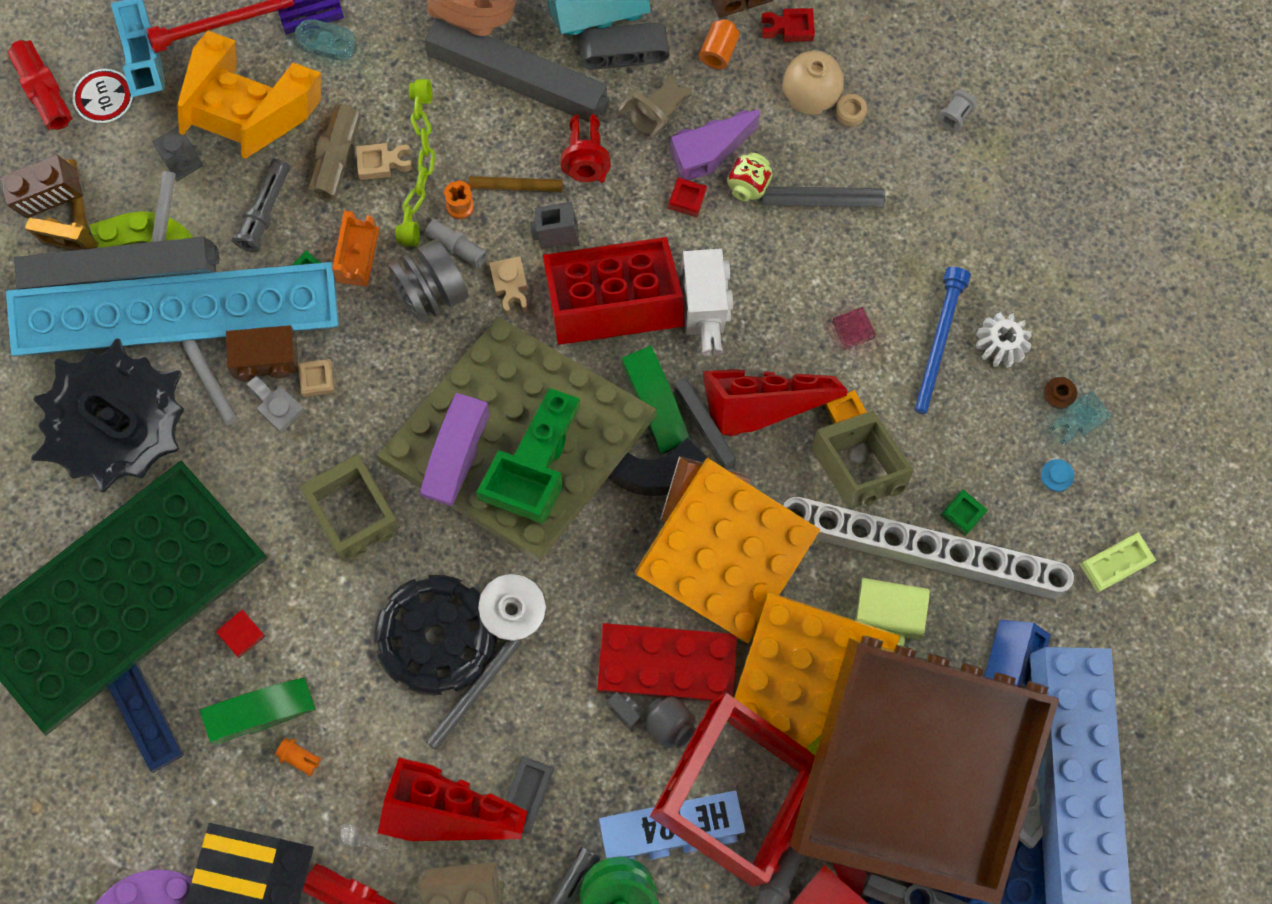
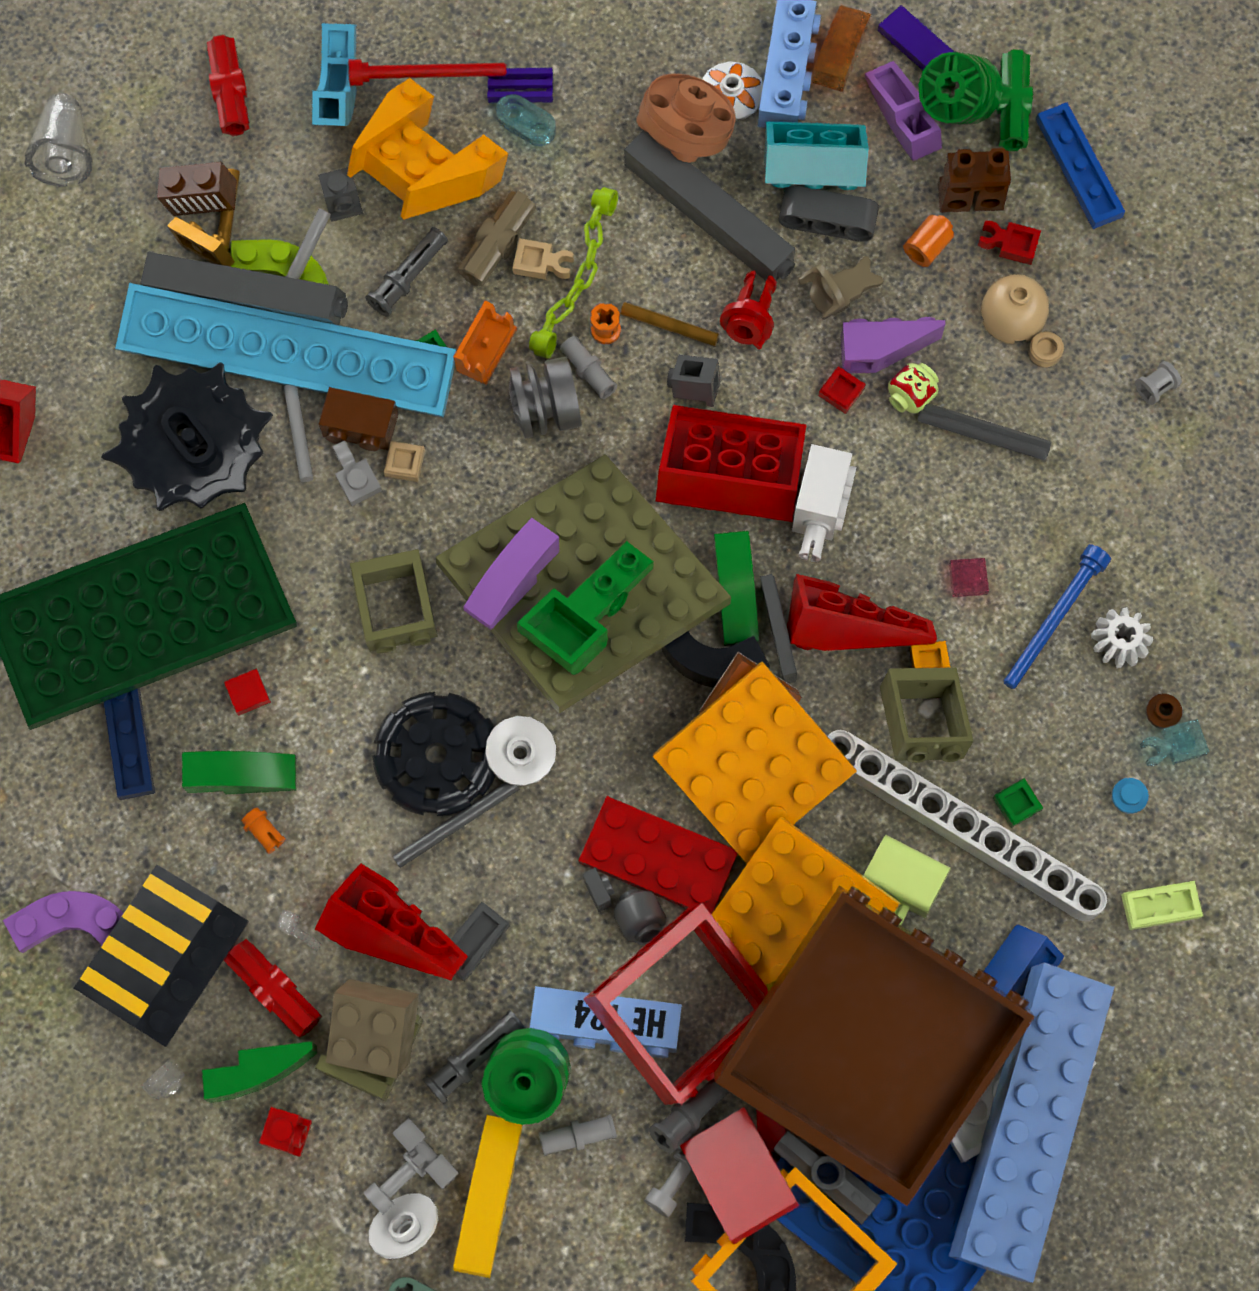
camera: 25 degrees right, 0 degrees up
(102, 96) = (285, 114): sticker -> none
(509, 281) = (630, 421): tan plate -> none

